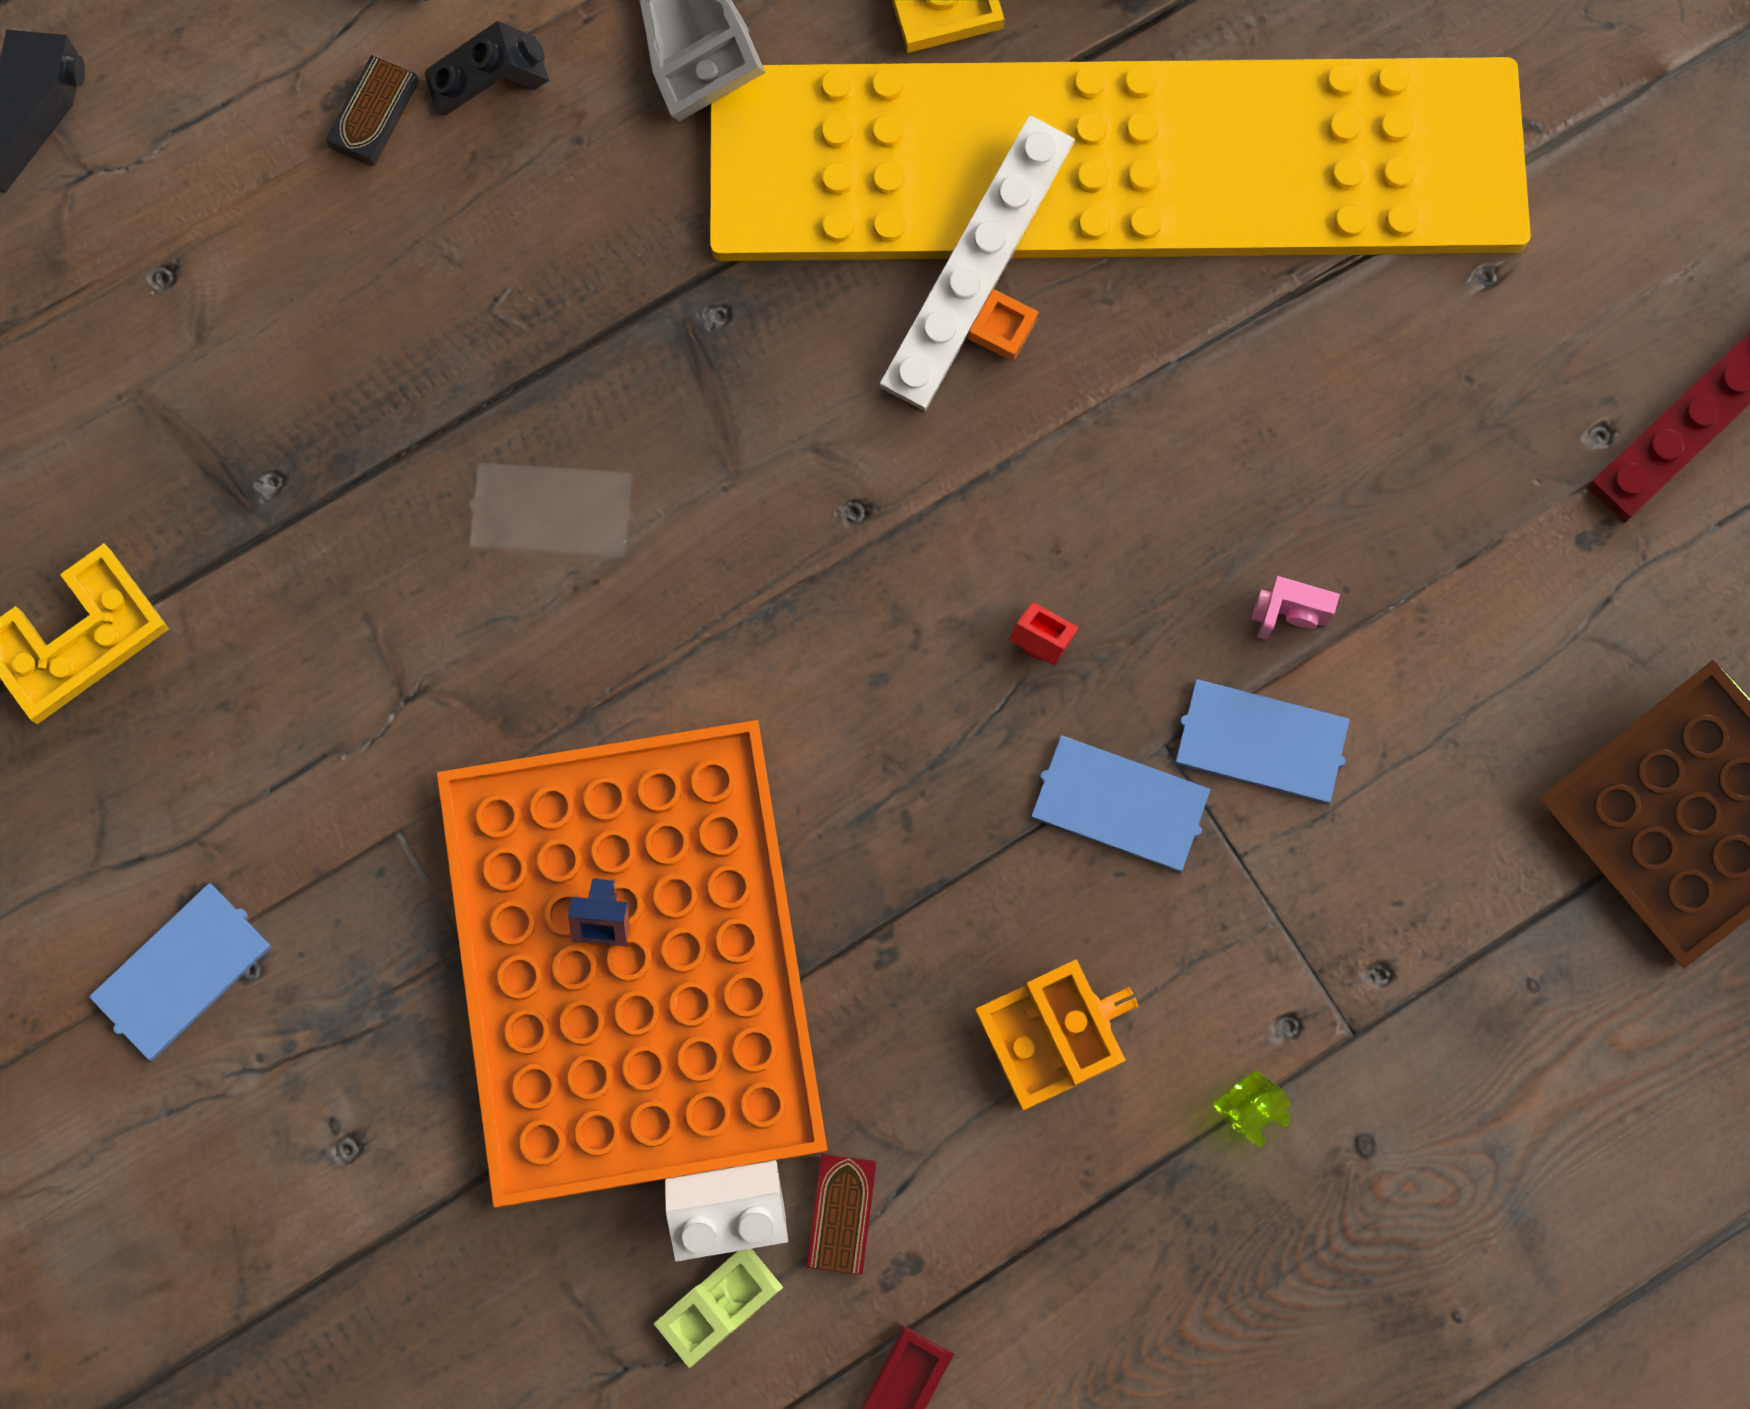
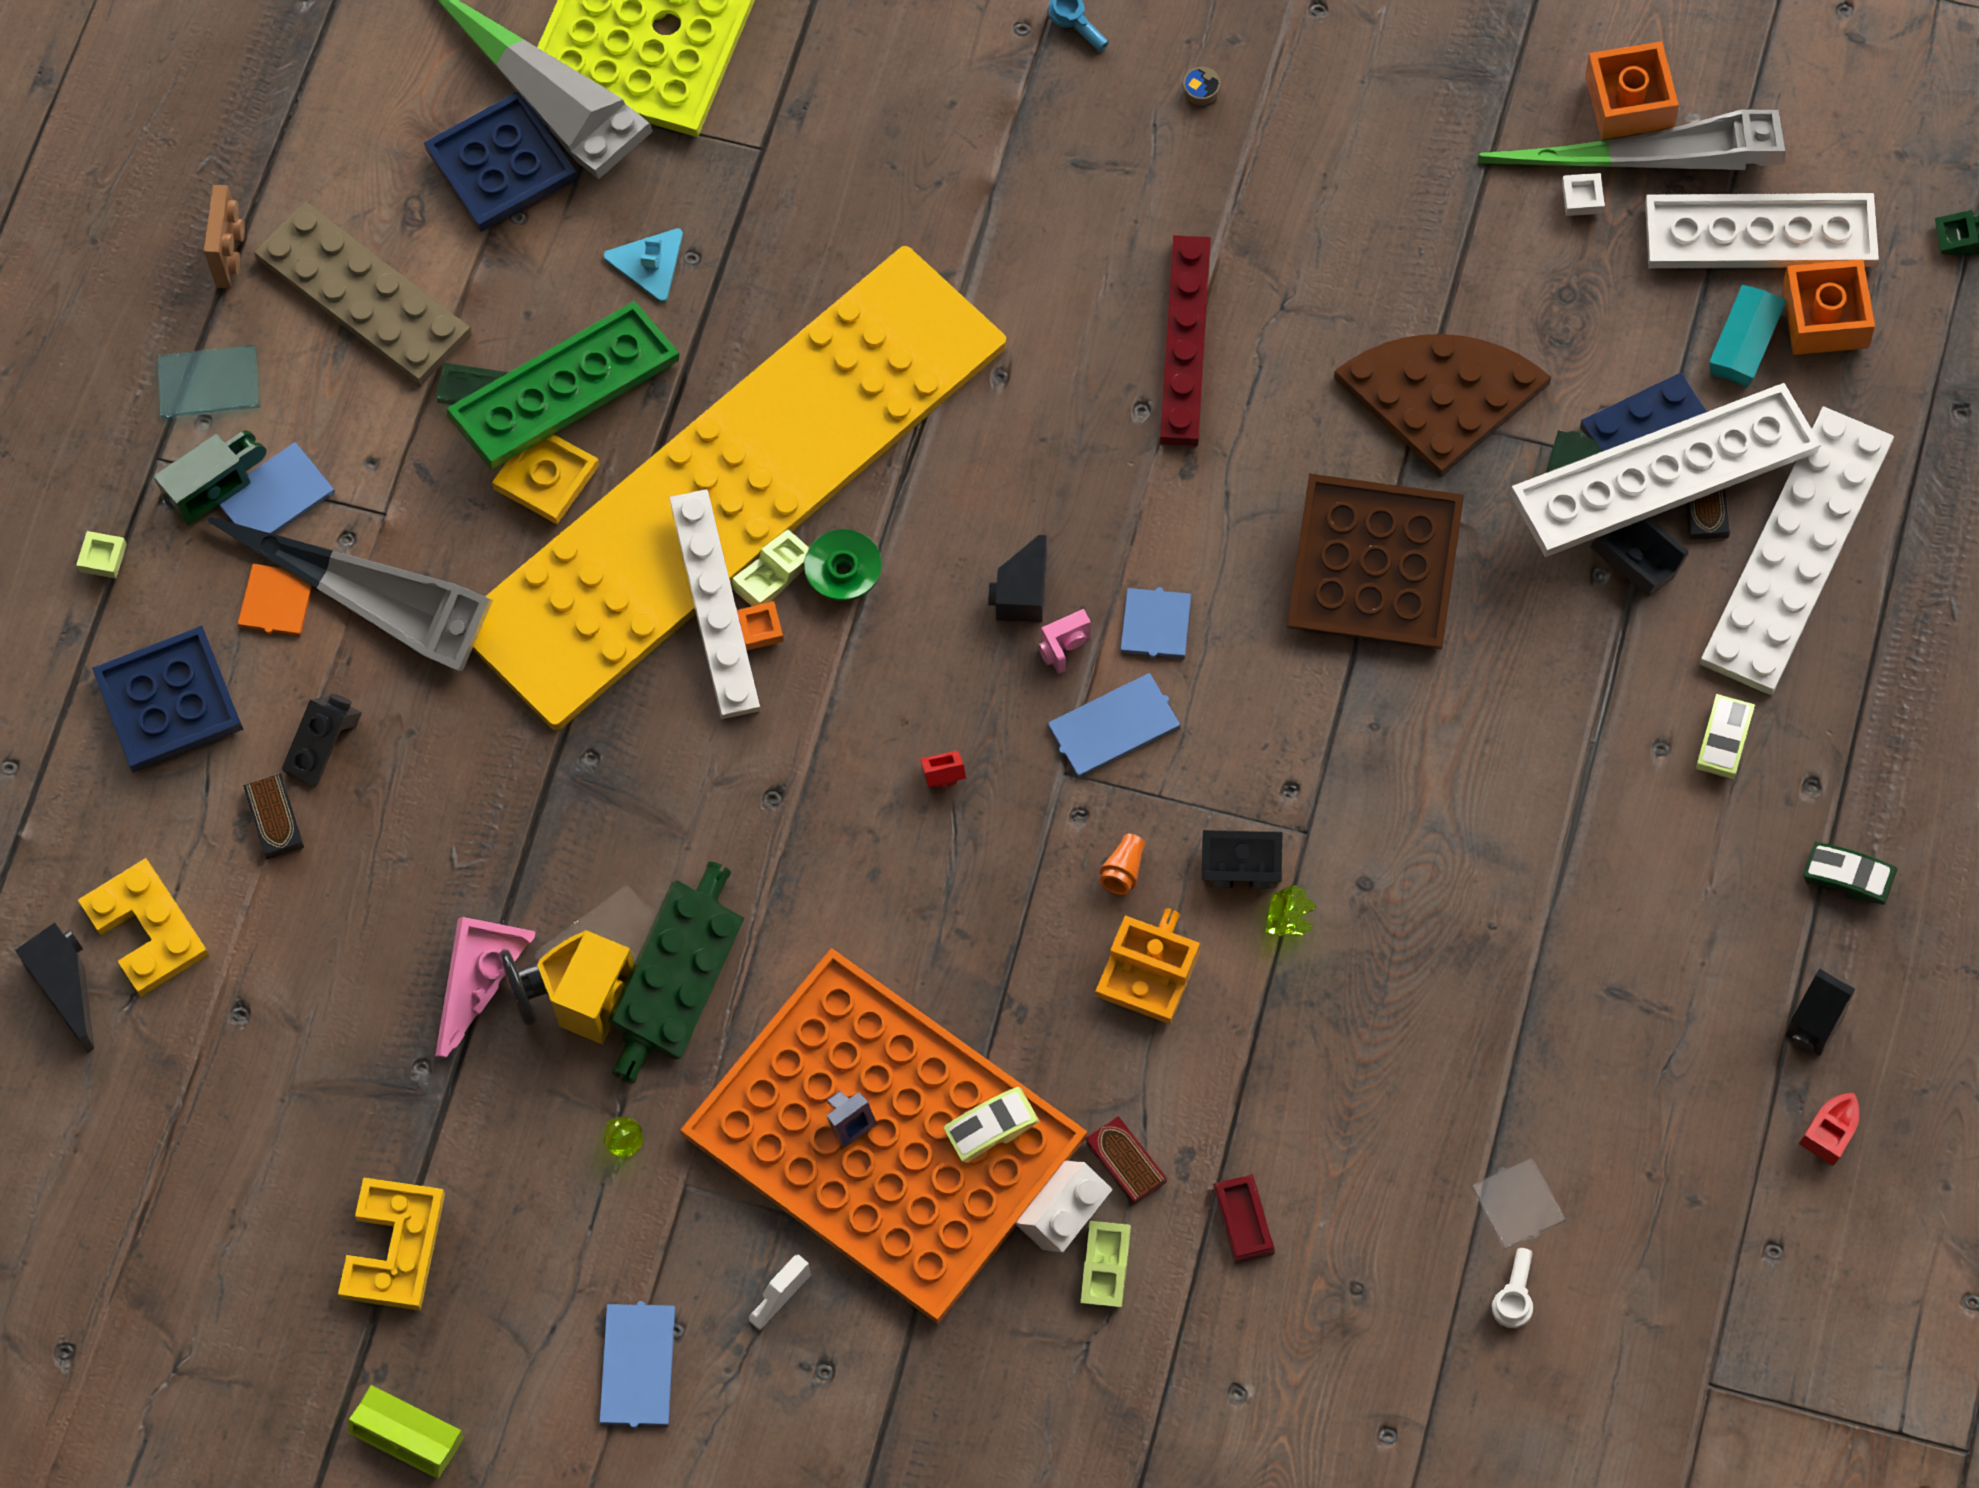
camera: 40 degrees left, 10 degrees down
(184, 87) = (173, 941): none -> yellow plate
(378, 1028) = (780, 1290): none -> white tile
(381, 726) = (623, 1136): none -> clear neon green plate
(414, 427) = (475, 974): none -> bright pink wing
(474, 529) = (580, 980): none -> yellow piece
(586, 604) = (674, 972): none -> dark green plate
(734, 1055) = (990, 1123): none -> slope
(1072, 281) = (773, 571): none -> yellowish green slope
(1121, 804) = (1069, 823): medium blue piece -> none
(1129, 900) = (1122, 867): none -> orange cone
(1149, 313) = (838, 550): none -> green dish
(1258, 1005) = (1242, 857): none -> black bracket
(1304, 511) = (1021, 584): none -> black slope
(1406, 672) = (1156, 623): none -> medium blue piece

